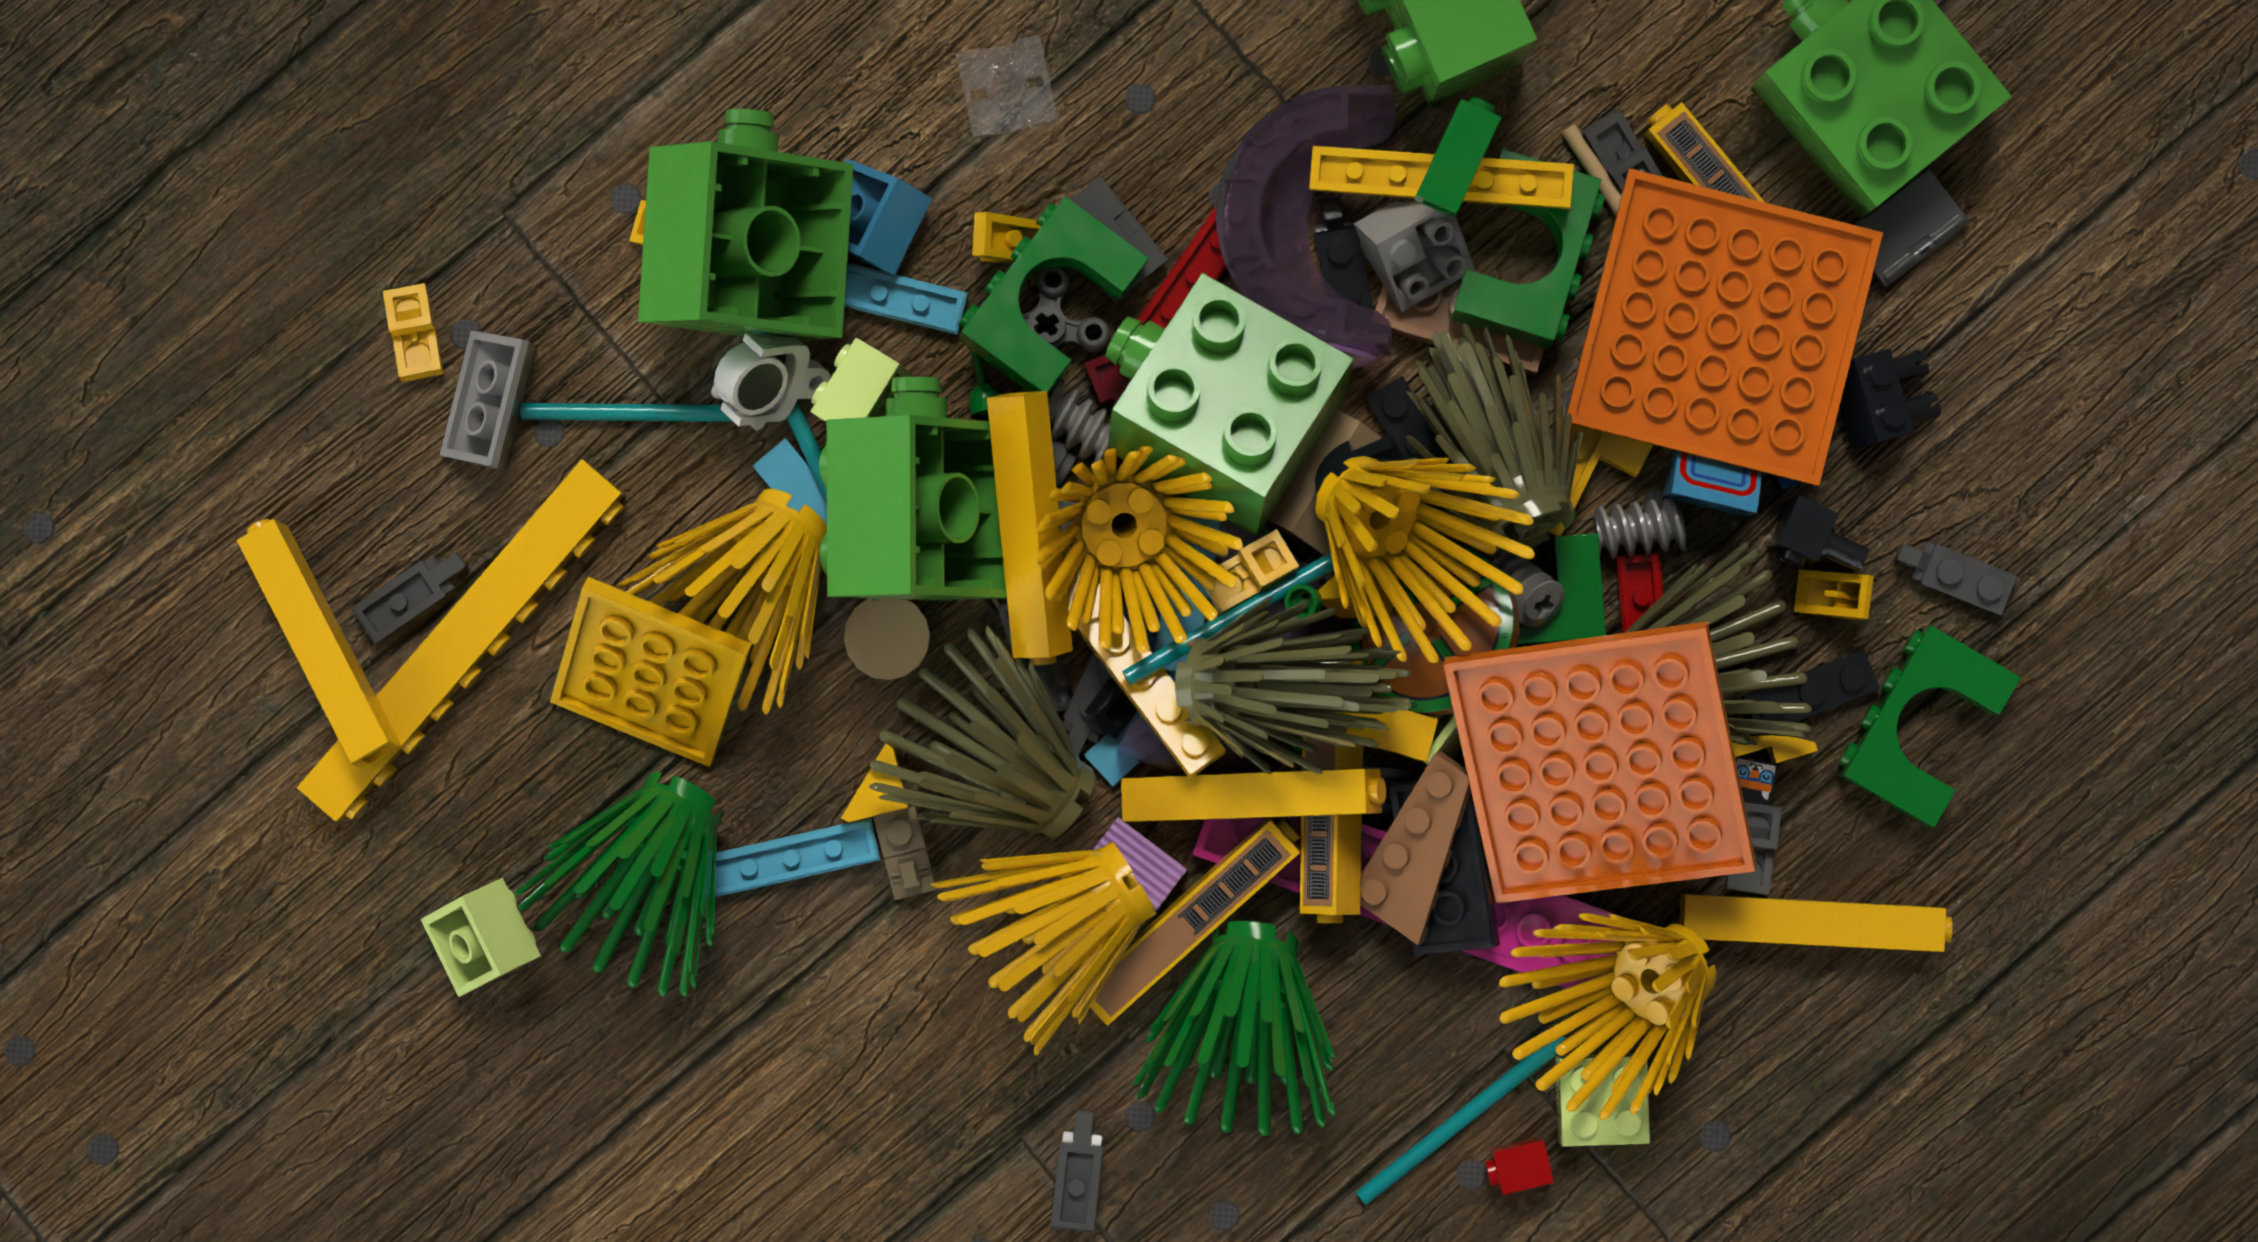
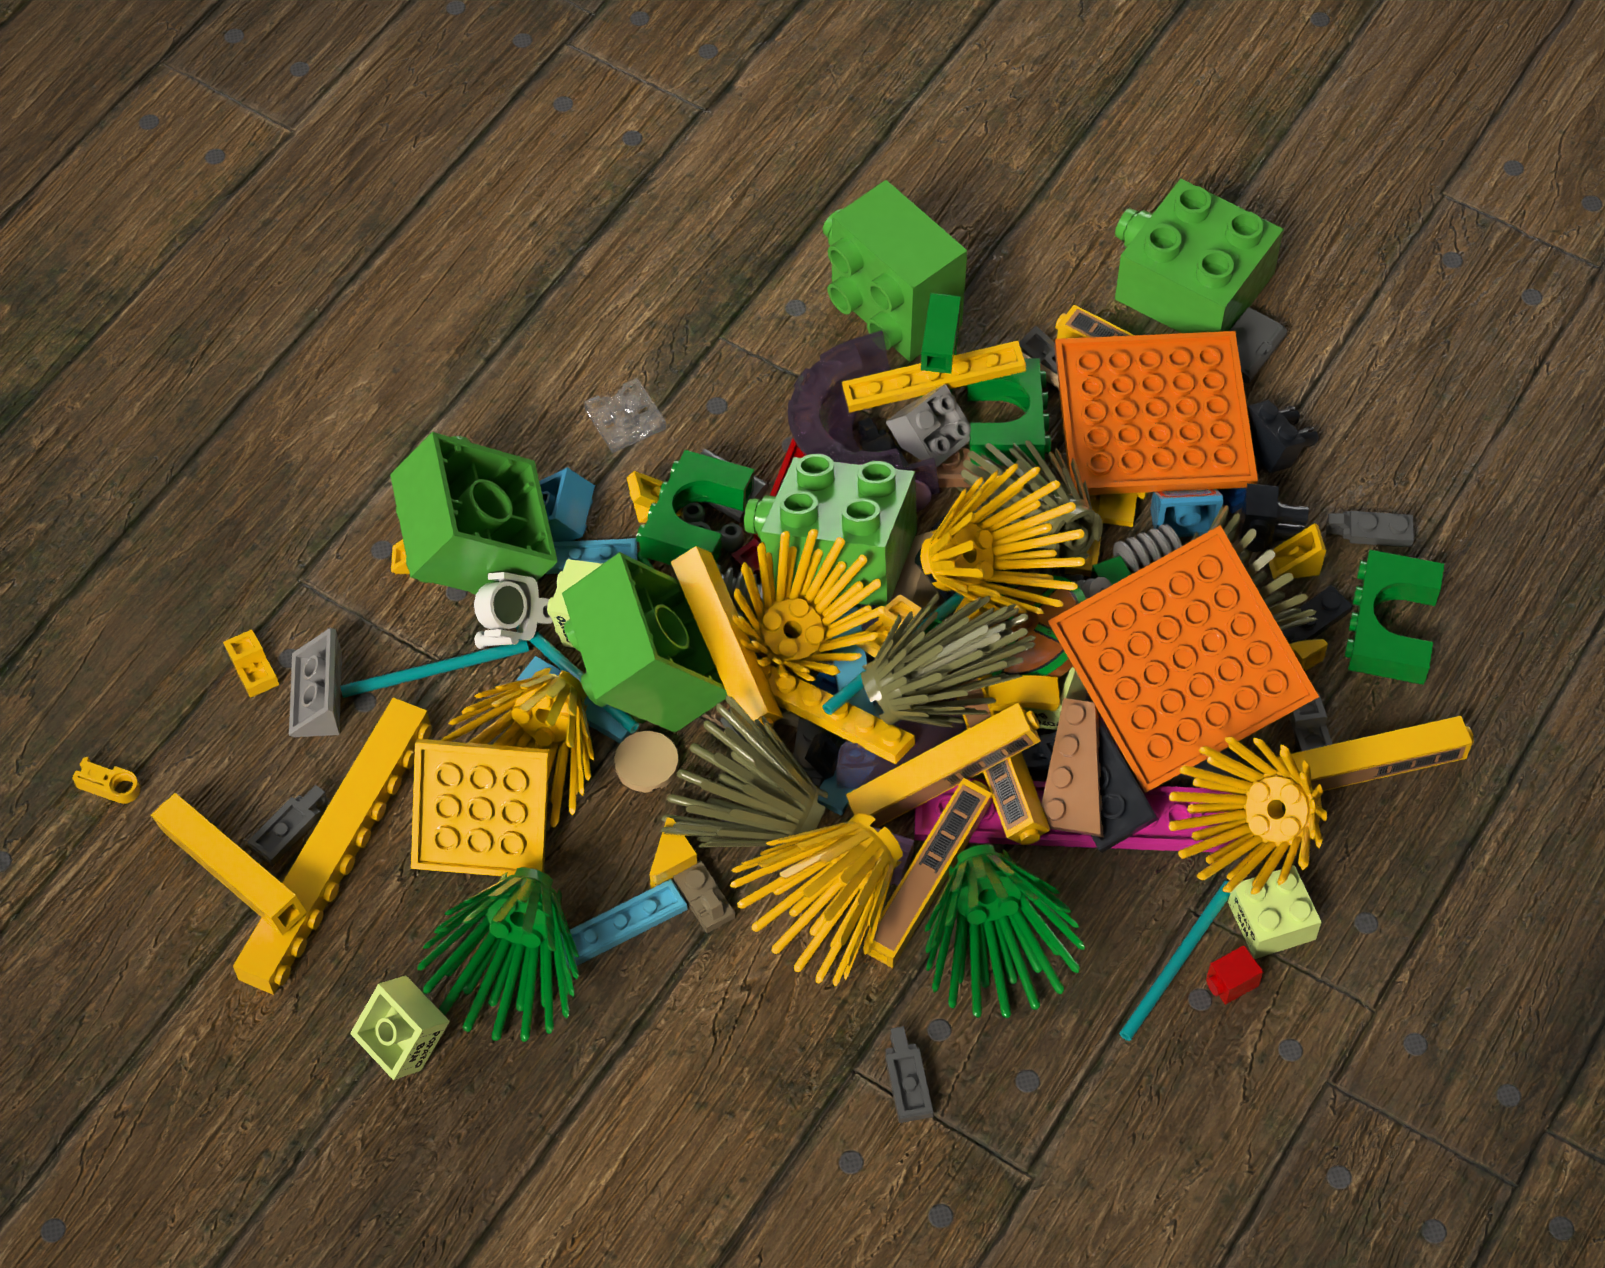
camera: 15 degrees left, 30 degrees down
(190, 453) = (103, 781): none -> yellow piece

